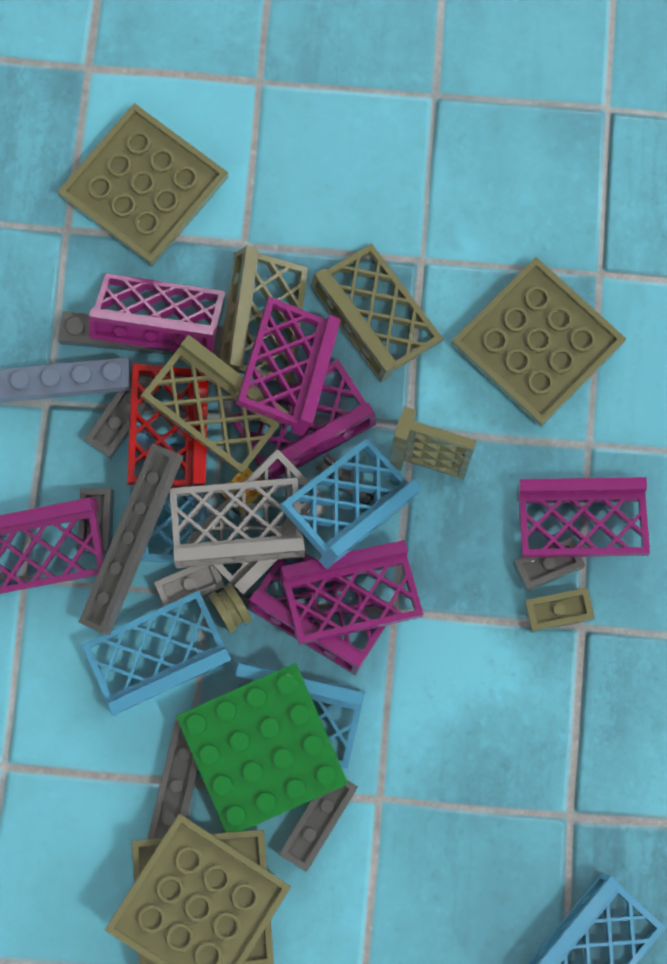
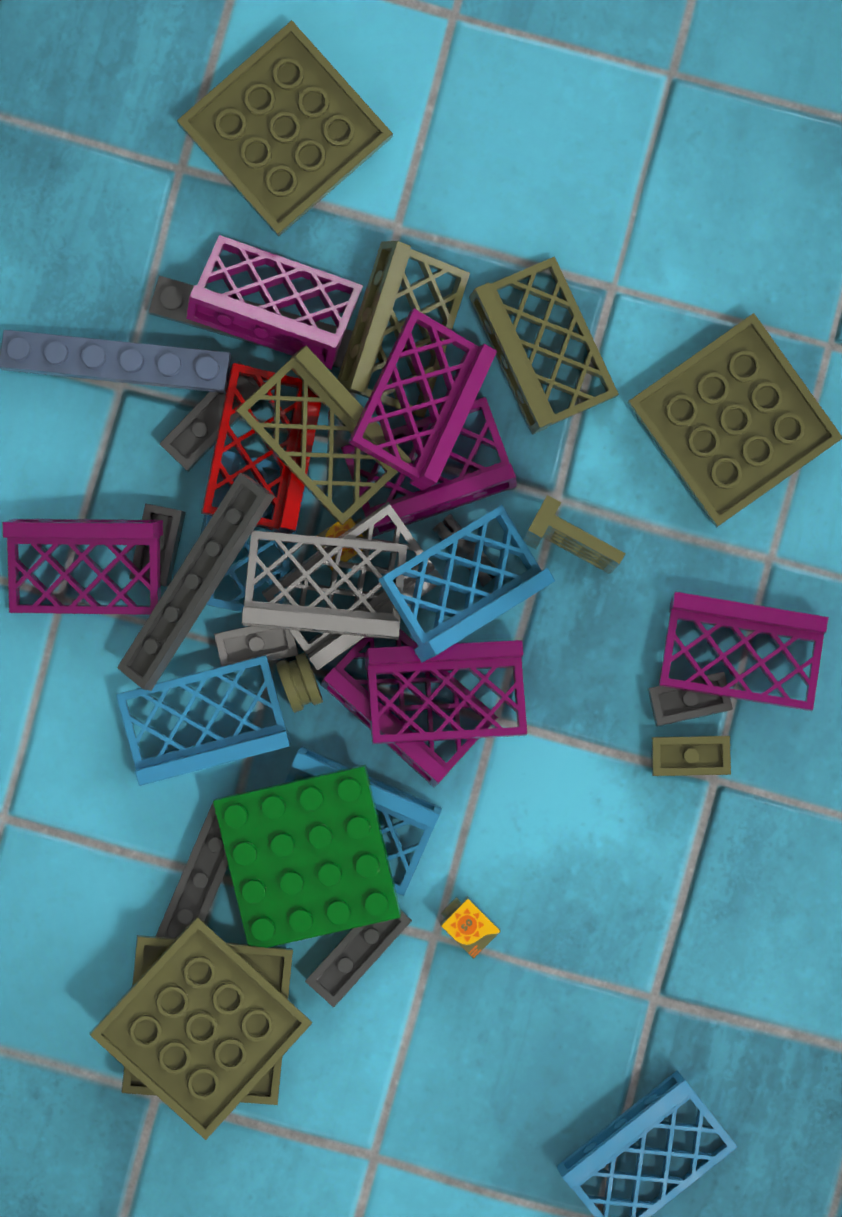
camera: 15 degrees right, 10 degrees up
(406, 782) = (468, 925): none -> brick

